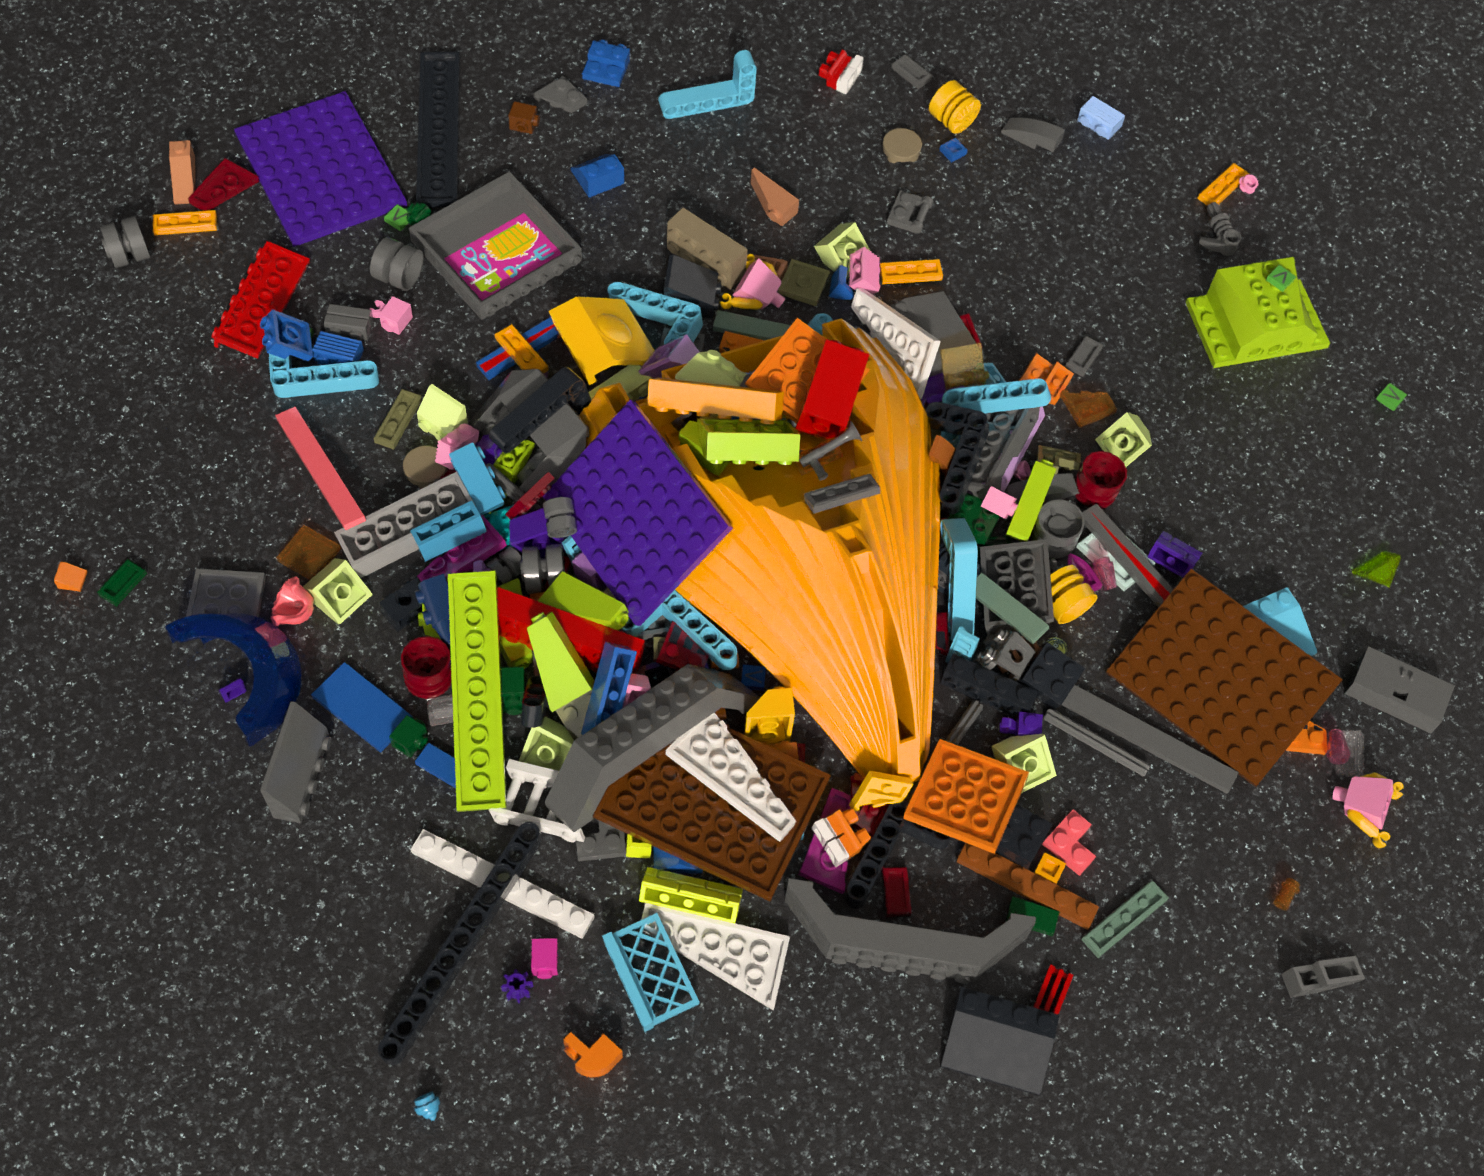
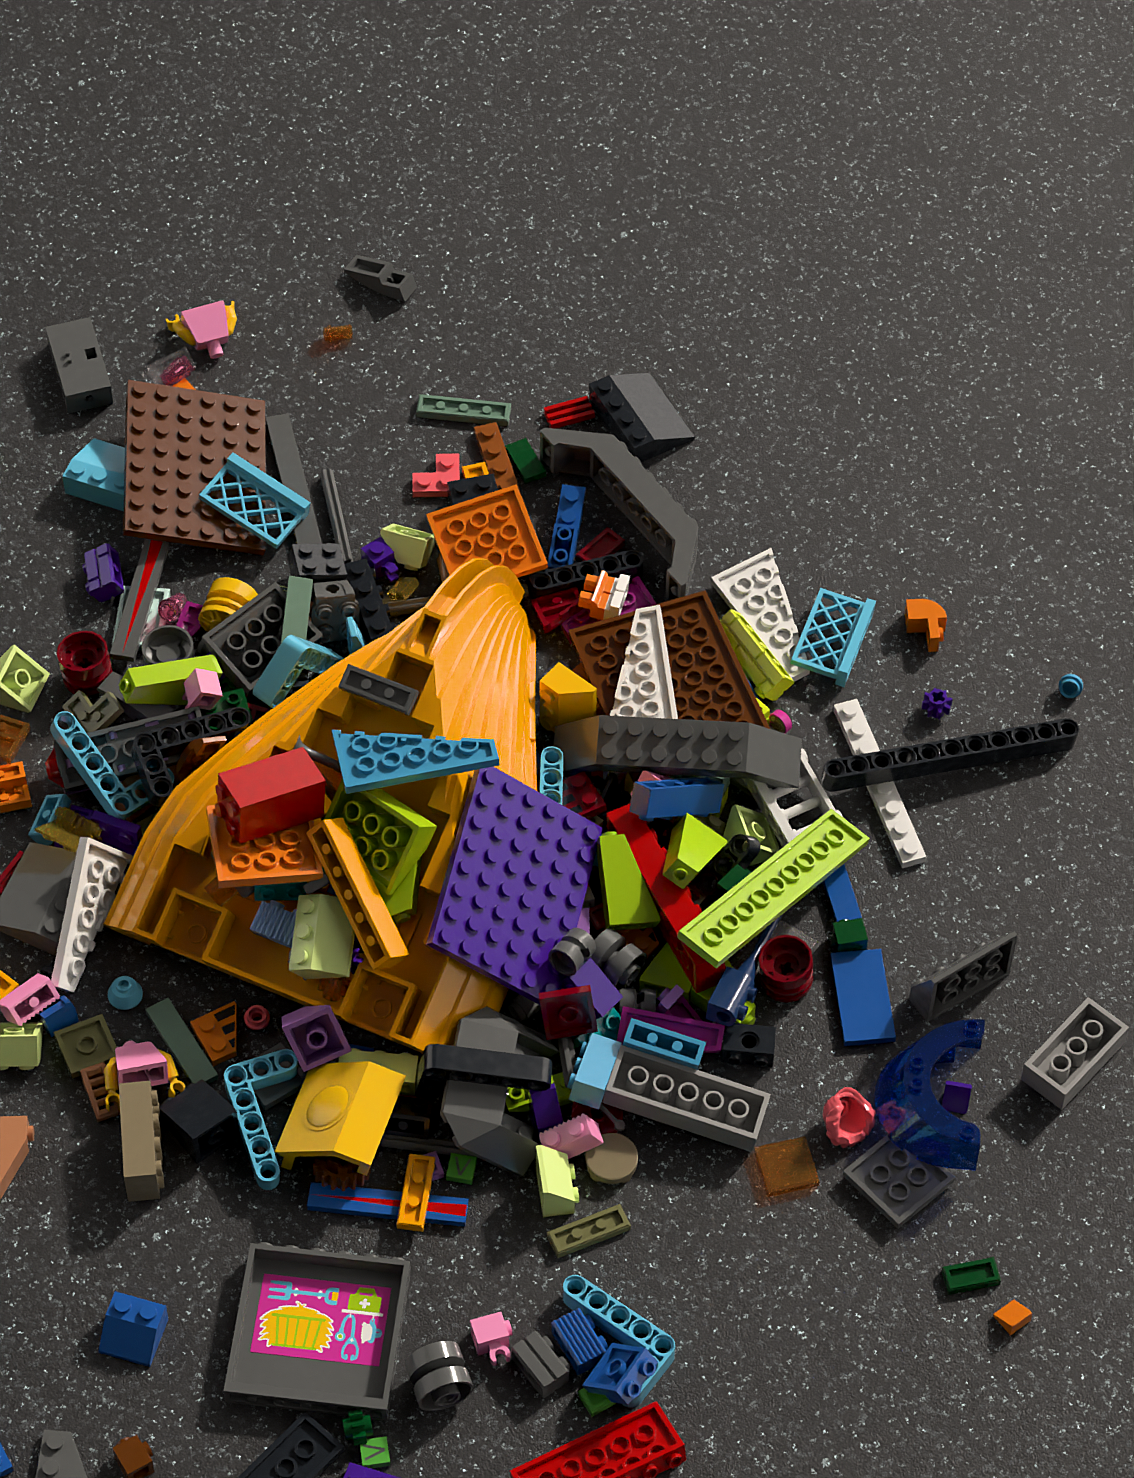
camera: 130 degrees left, 5 degrees down
(165, 781) = (1074, 1053): none -> light grey brick
(320, 468) = (709, 1222): coral tile -> none
(338, 590) = (796, 1107): yellowish green slope -> none
(544, 958) = (898, 705): dark pink brick -> none
(618, 861) = (780, 721): none -> tile
(776, 463) = (402, 758): none -> dark azure wing
(881, 790) = (545, 590): yellow wing -> none
(932, 878) = (567, 526): none -> blue slope
(985, 725) = (403, 588): none -> clear yellow tile
(1161, 699) = (270, 490): none -> medium azure fence

